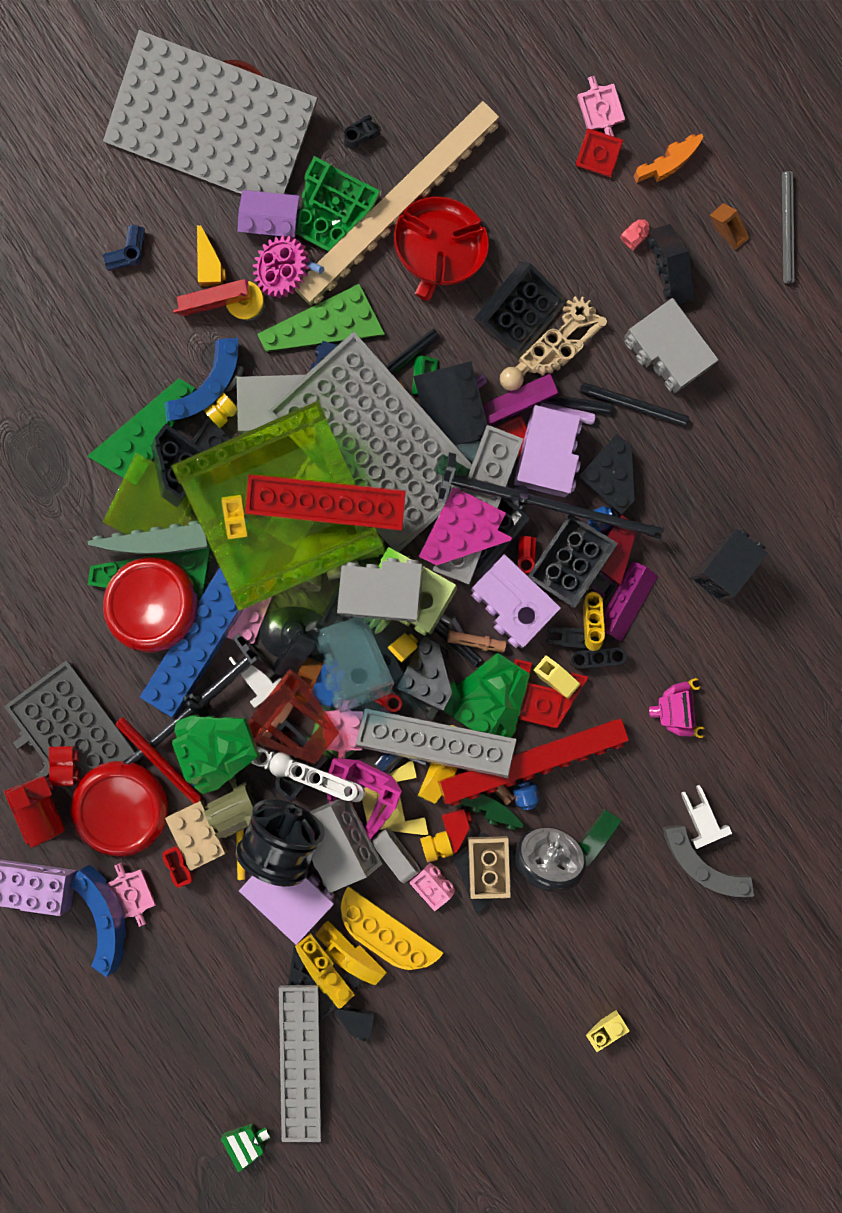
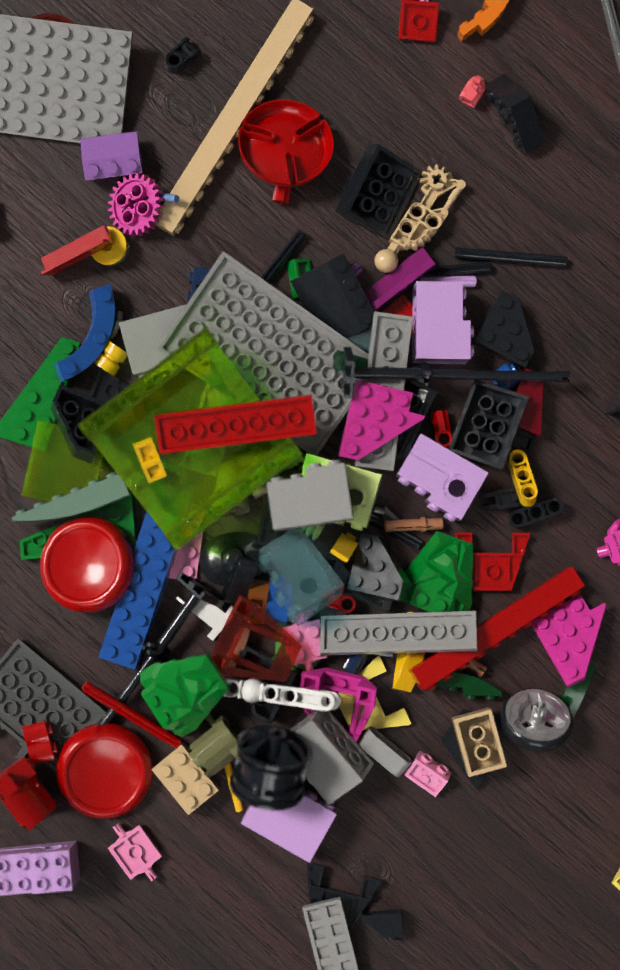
camera: 10 degrees left, 0 degrees up
(107, 916) = (119, 880): blue brick -> none
(178, 868) = (178, 818): red brick -> none
(209, 267) = (65, 220): yellow slope -> none
(322, 971) = (340, 881): yellow slope -> none
(327, 321) = (193, 247): bright green wing -> none
(332, 204) = (171, 132): green wedge -> none
(351, 959) = (368, 864): yellow slope -> none
(385, 934) = (393, 830): yellow plate -> none
(436, 846) = (422, 733): yellow wheel -> none
(456, 826) = (437, 709): red slope -> none
(526, 795) = (497, 662): blue head -> none
(556, 677) = (499, 541): light yellow slope -> none
(603, 786) = (570, 637): none -> dark pink wing
(628, 600) = (550, 449): magenta panel -> none
(671, 345) = (533, 191): light grey piece -> none
(729, 225) = (562, 61): dark orange slope -> none

